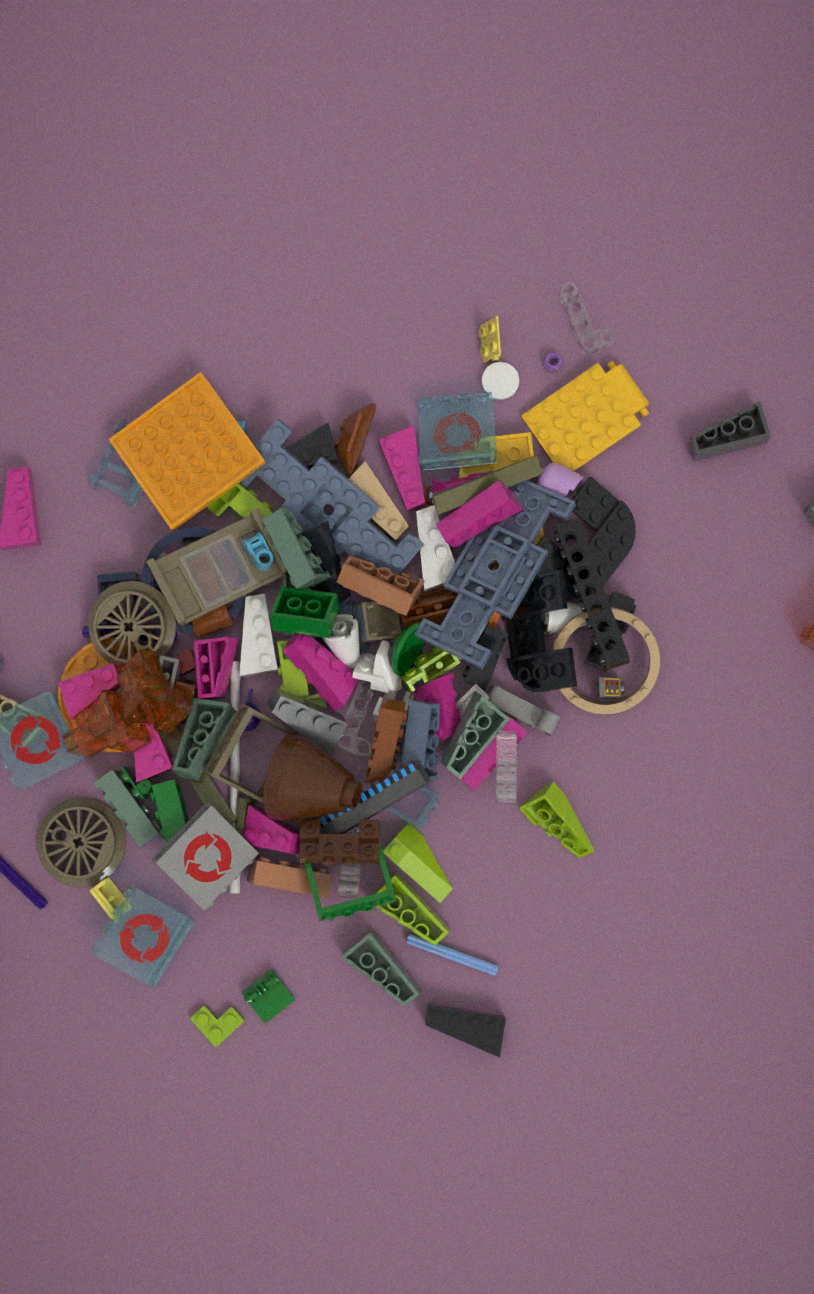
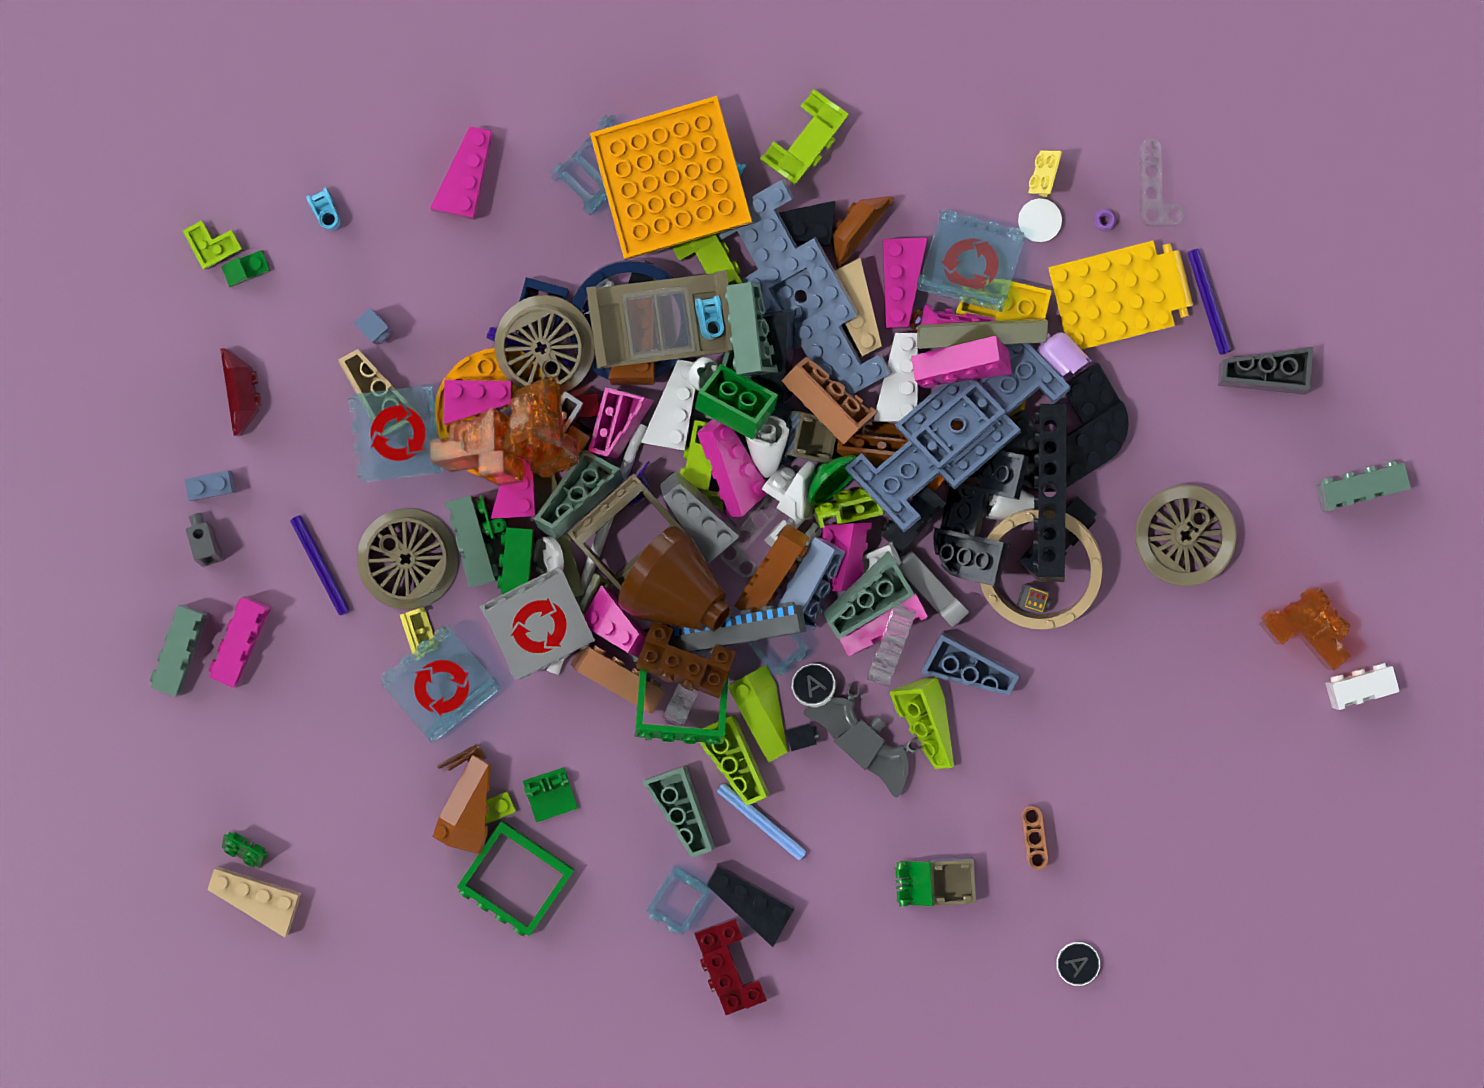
camera: 15 degrees right, 5 degrees up
(18, 1136) = (251, 857): none -> green hinge
(53, 1174) = (257, 898): none -> tan wedge
(192, 987) = (463, 756): none -> reddish brown plant
(195, 796) = (548, 555): none -> white tile
(201, 1039) = (463, 816): none -> dark orange wedge
(267, 598) = (701, 371): none -> white hair
(271, 1046) = (501, 915): none -> green window
(292, 382) = (811, 142): none -> lime bracket
(411, 1026) = (691, 881): none -> clear light blue window
(454, 825) = (813, 685): none -> black tile
(460, 871) = (802, 736): none -> black brick
(464, 1091) = (722, 969): none -> dark red bracket
(511, 855) = (863, 741): none -> dark grey torso
(570, 762) = (963, 664): none -> sand blue wedge
(599, 960) = (915, 883): none -> green hinge
(628, 947) = (953, 881): none -> dark tan container
(661, 396) = (1209, 301): none -> dark purple axle
(684, 895) = (1034, 848): none -> nougat beam
(702, 621) = (1160, 563): none -> dark tan piece
(758, 977) = (1077, 963): none -> black tile

